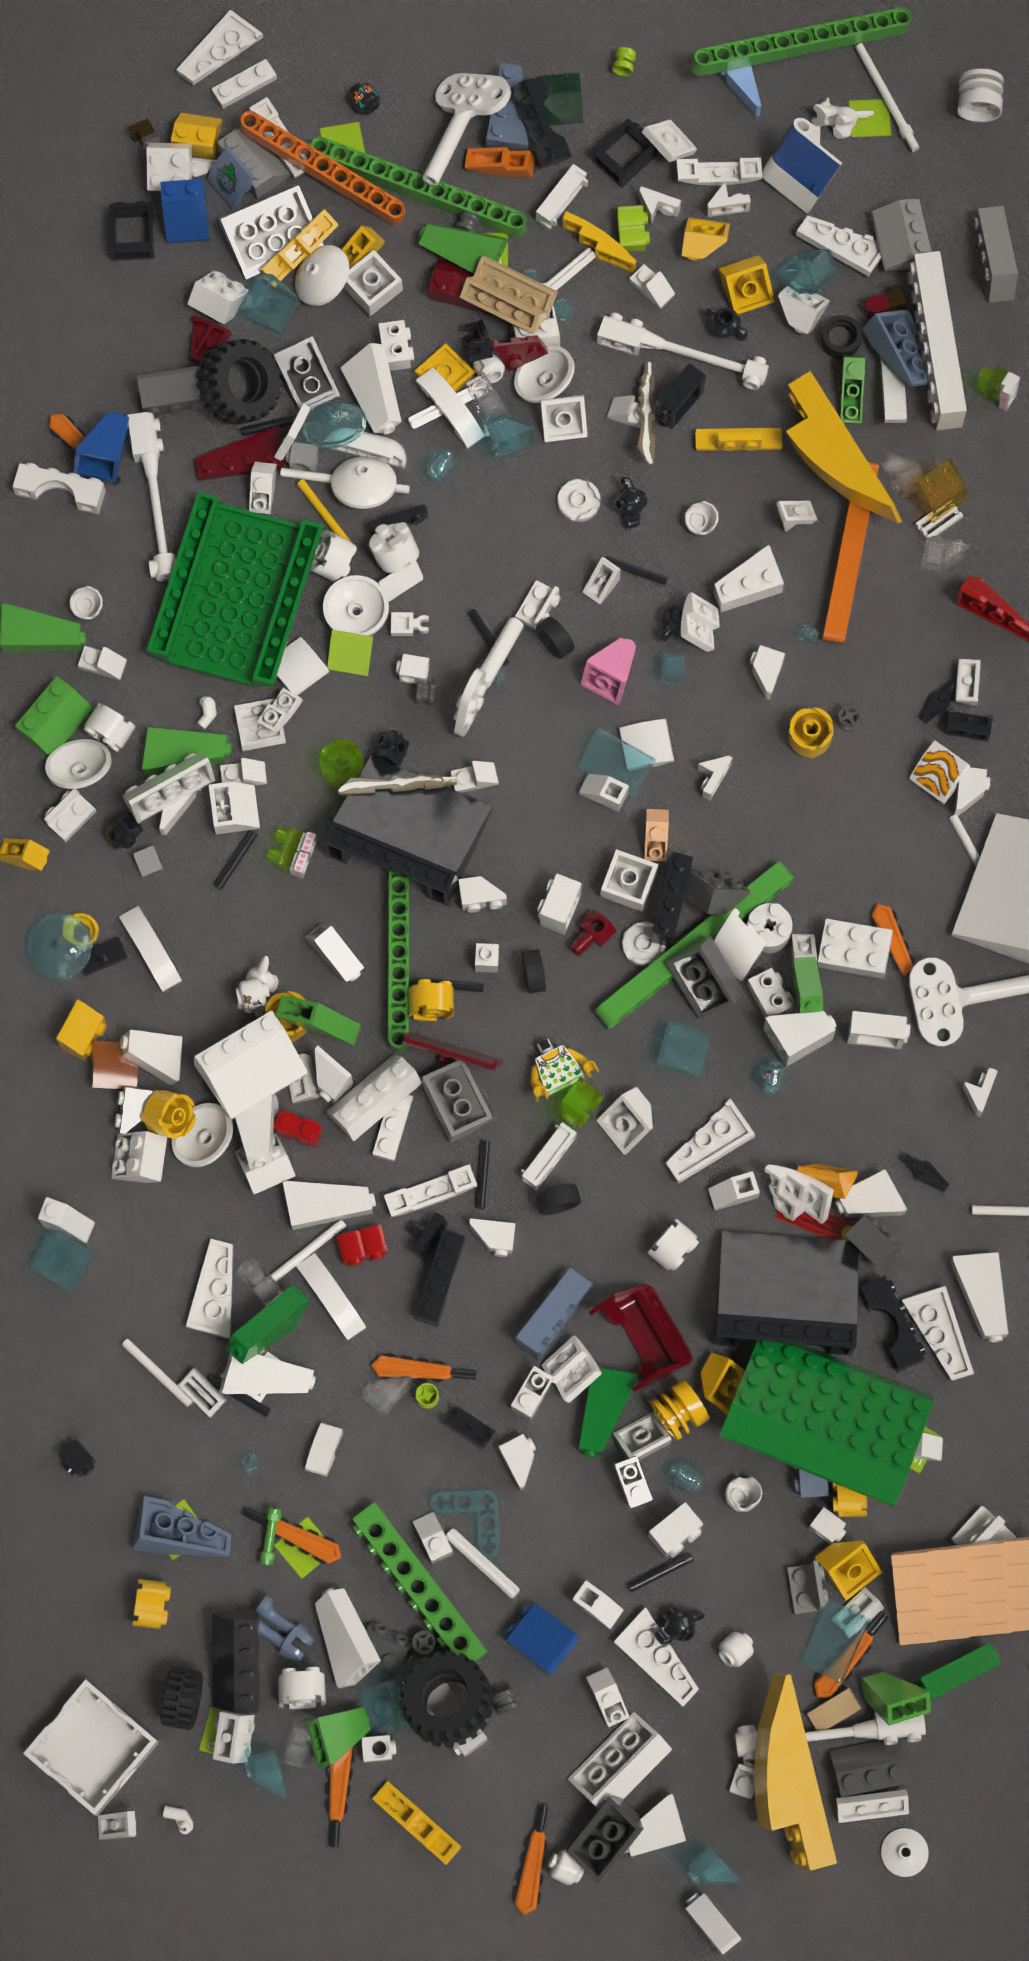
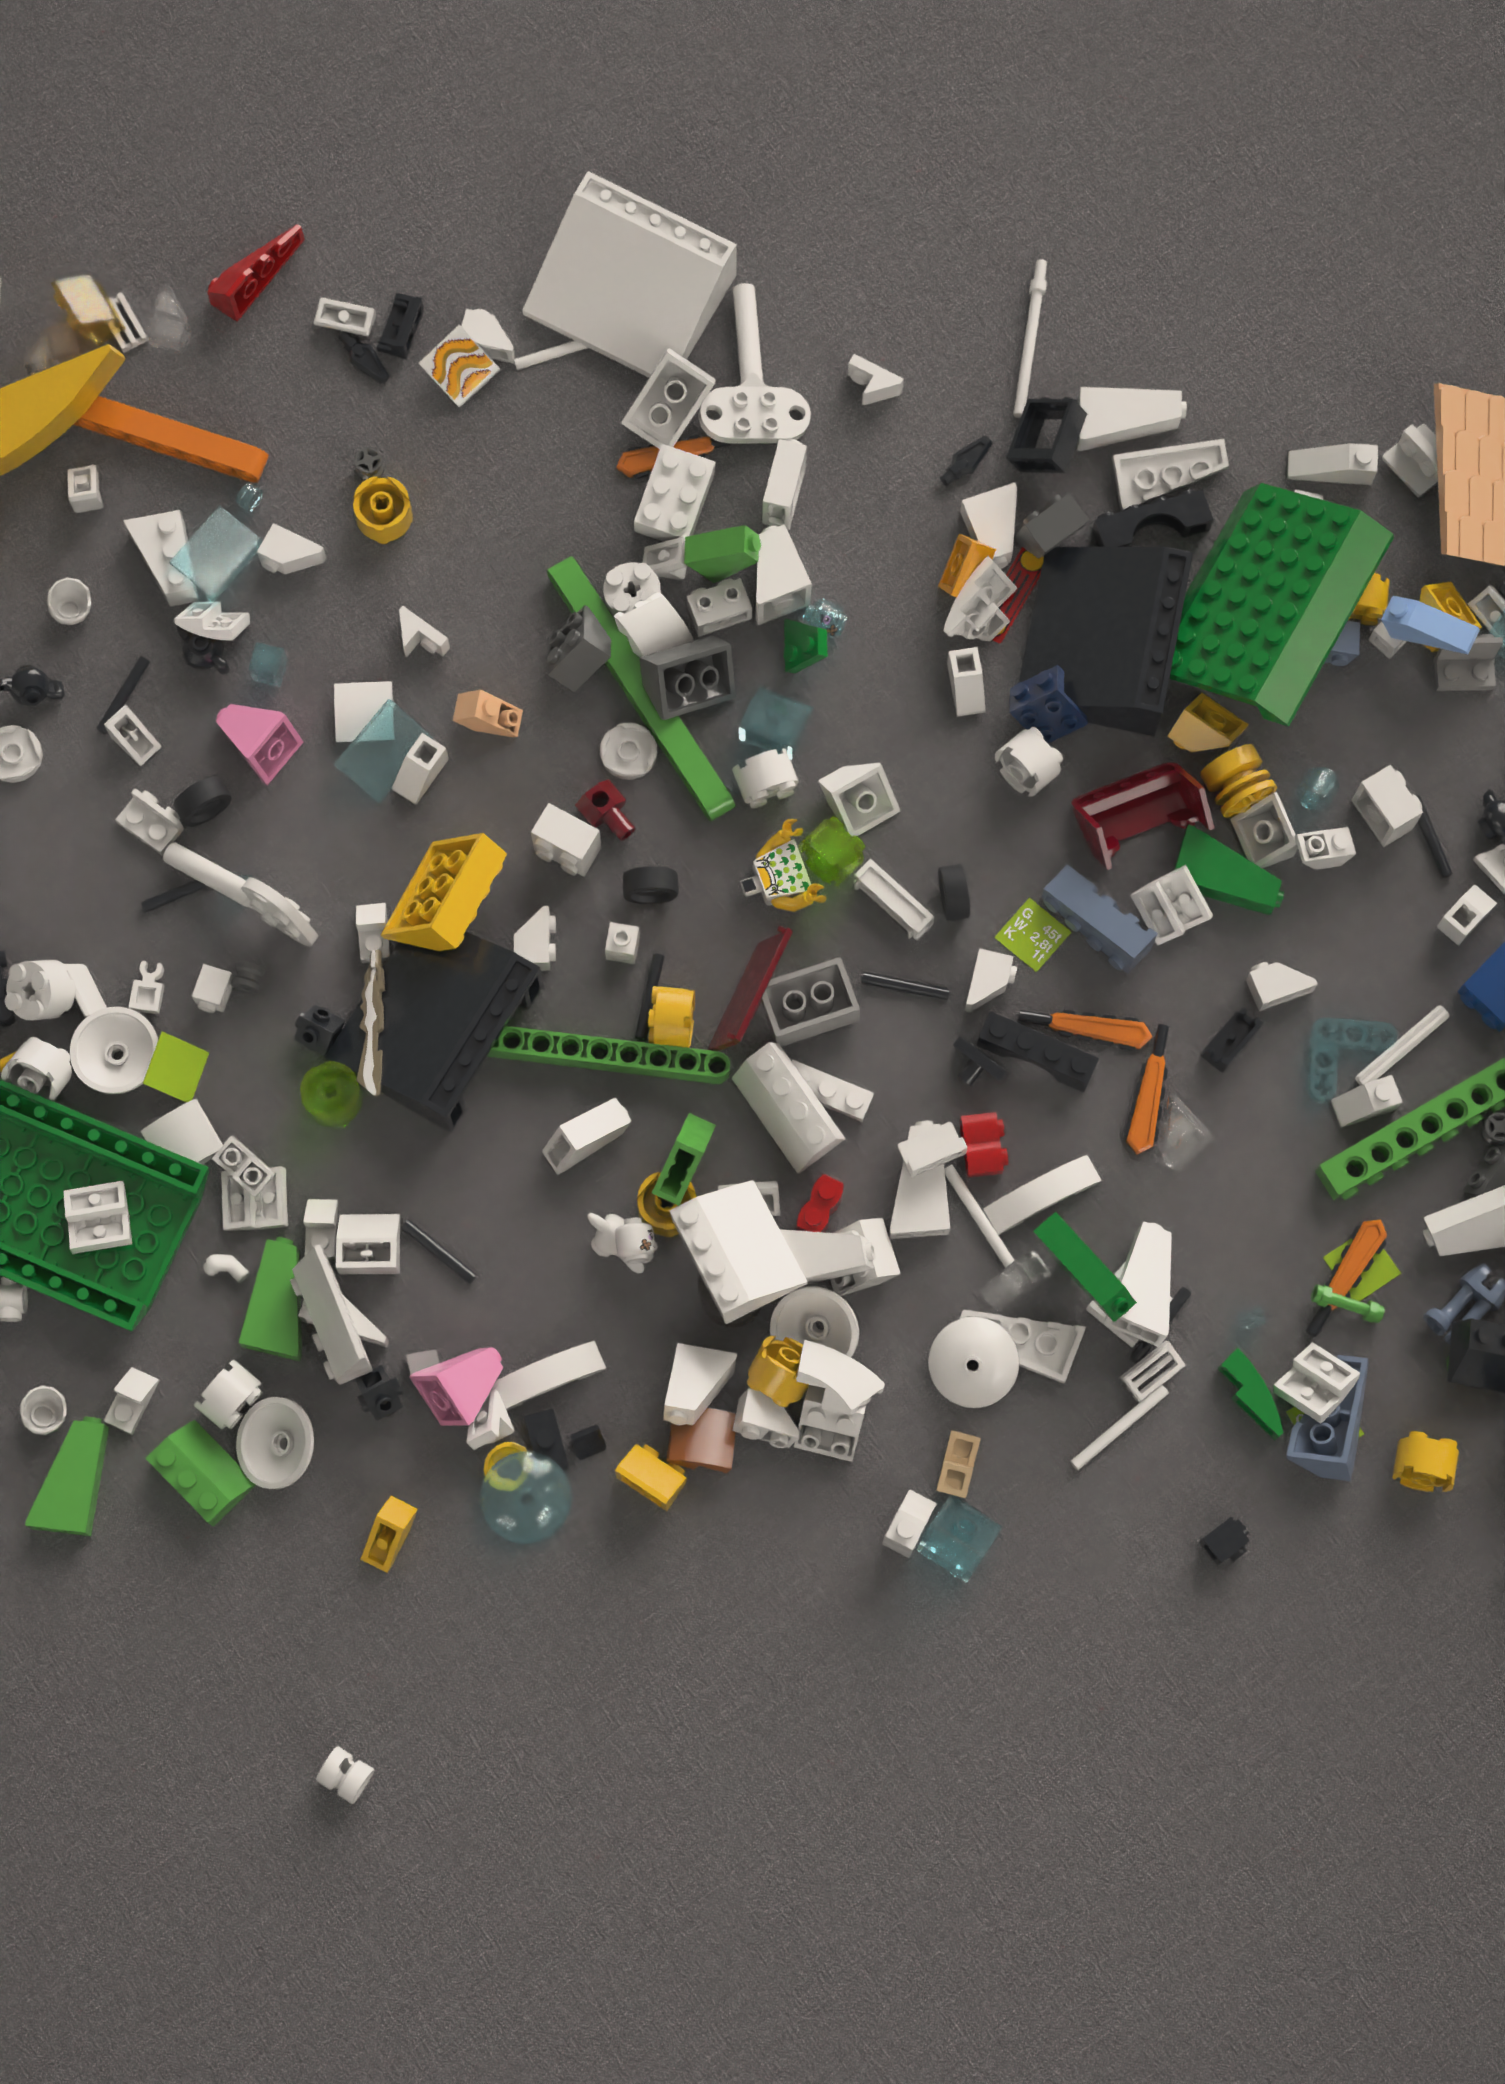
camera: 85 degrees left, 0 degrees up
(69, 815) = (343, 1465): white bracket -> none
(104, 985) = (588, 1442): none -> black slope
(110, 910) = (490, 1423): none -> white slope
(116, 1255) = (958, 1464): none -> tan slope
(136, 886) = (459, 1385): none -> bright pink slope
(165, 1153) = (844, 1379): none -> white slope
(192, 1468) = (1252, 1393): none -> green slope
(202, 1264) = (973, 1340): none -> white dish
(205, 1516) = (1316, 1382): none -> white slope
(230, 616) = (97, 1217): none -> white slope
(295, 851) = (441, 1170): hips -> none
(323, 1449) = (1242, 1224): white slope -> none
(332, 1078) = (756, 1157): white slope -> none
(350, 1203) = (932, 1149): none -> white panel
(426, 1391) = (1190, 1083): lime wheel -> none
(431, 1192) = (921, 1050): white slope -> none
(467, 1332) = (1107, 1030): none -> orange sword
(504, 820) = (445, 892): none -> yellow slope
(532, 1393) = (1197, 957): white slope -> none
(538, 1267) = (1032, 934): none -> lime sticker
(629, 880) = (545, 753): white brick -> none
(632, 1045) = (766, 777): none -> white brick
(671, 899) = (605, 711): black arch -> none
(716, 1139) = (895, 698): white wing -> none
(719, 1244) = (1044, 705): none -> dark blue bracket
(743, 1494) = (1346, 722): white hair -> none
(746, 1062) = (803, 645): none -> green wing
(754, 616) = (216, 553): none -> clear light blue piece
(824, 1544) = (1428, 626): none -> light blue slope
(933, 932) = (668, 400): none -> white slope
(952, 1217) = (1055, 460): none -> black window
(967, 1465) = (1334, 464): none -> white slope

